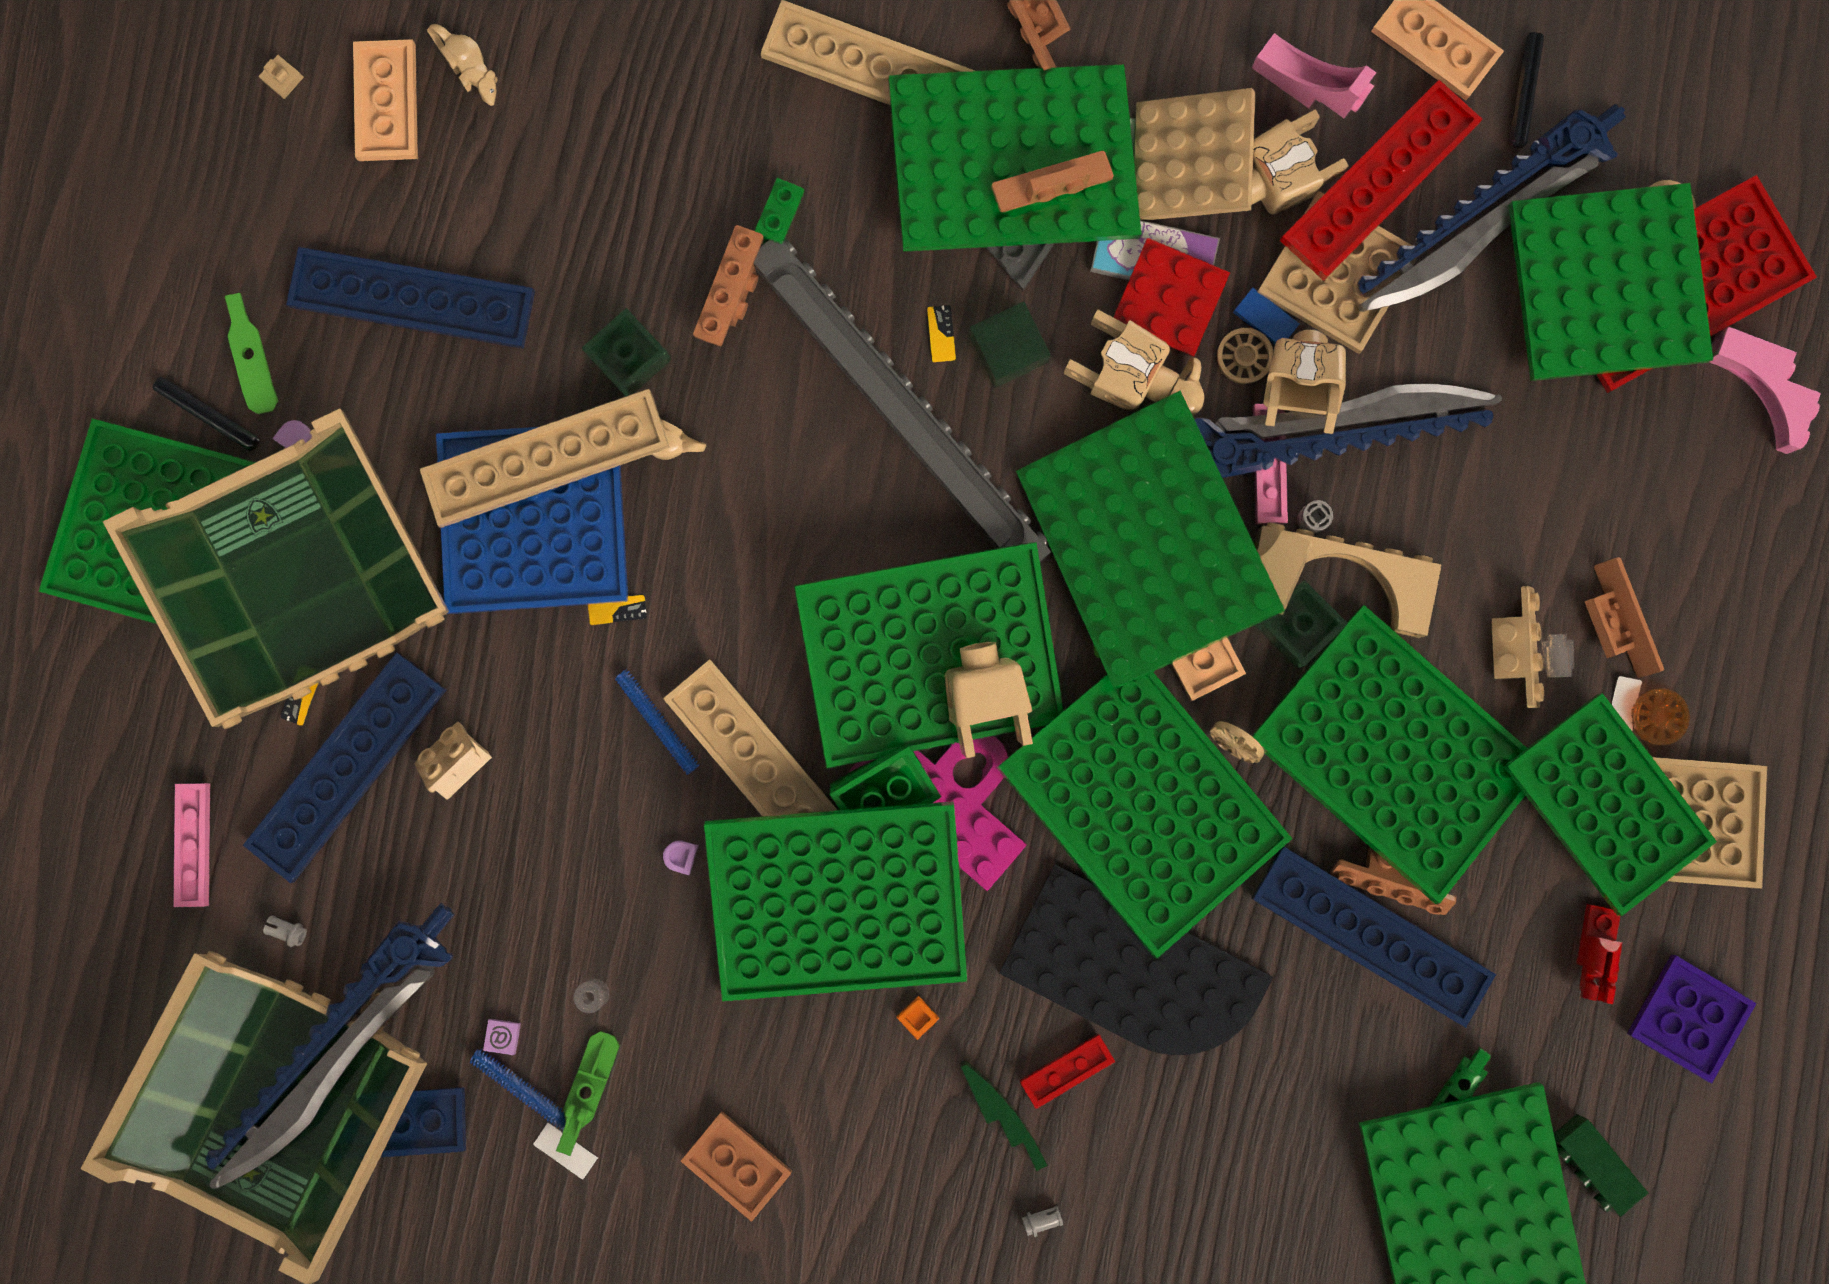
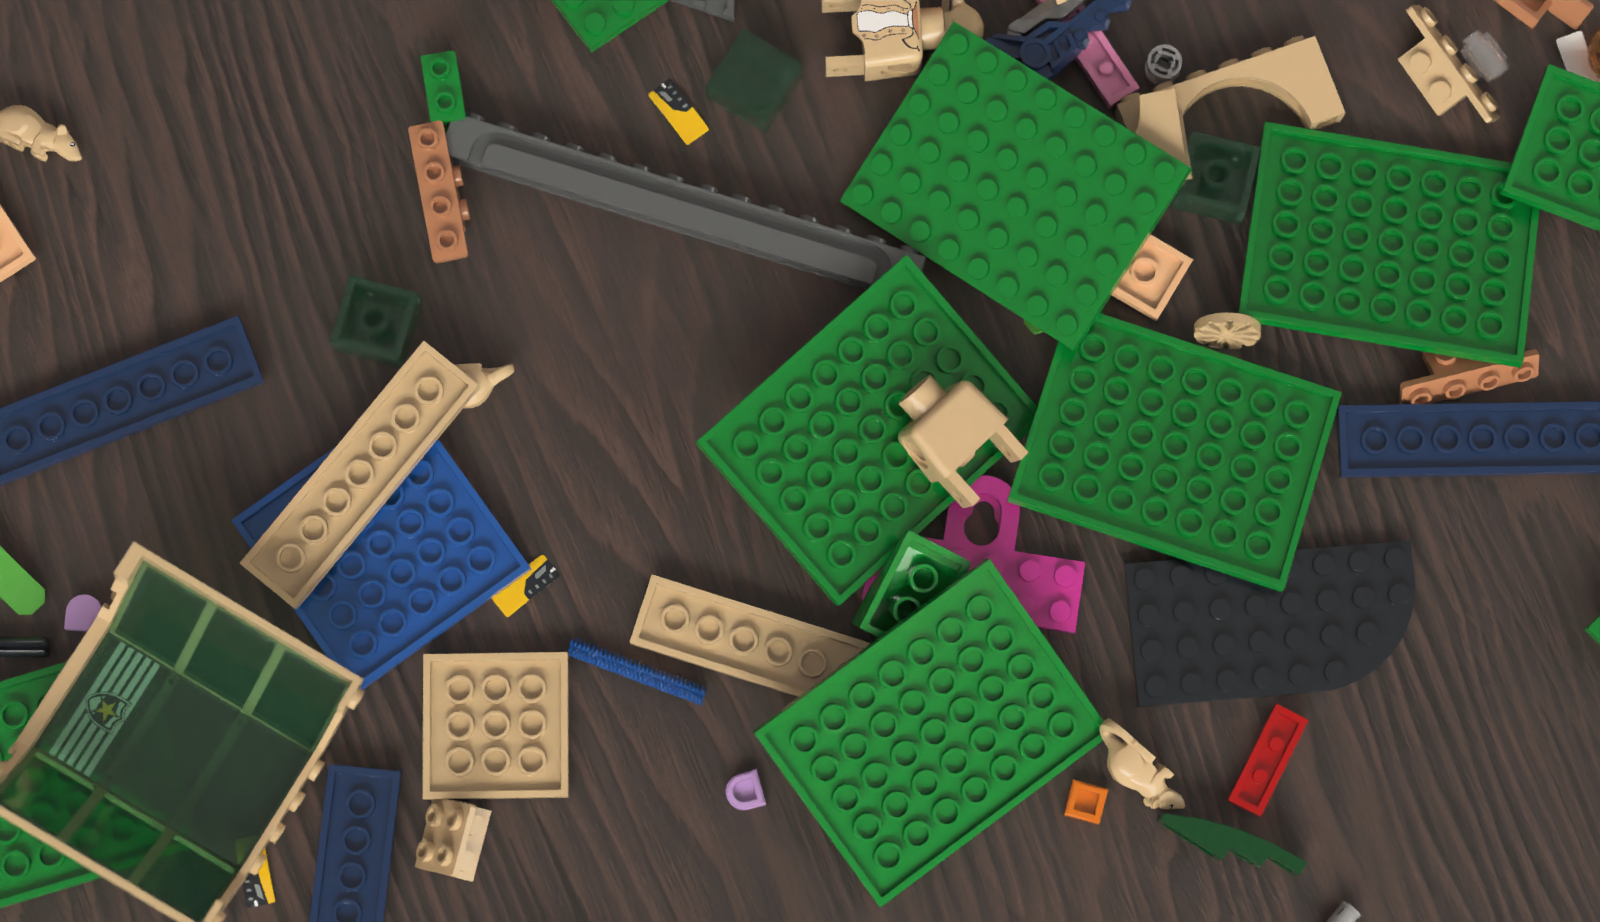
camera: 30 degrees left, 5 degrees down
(532, 698) = (496, 725): none -> tan plate
(965, 1016) = (1133, 768): none -> tan animal

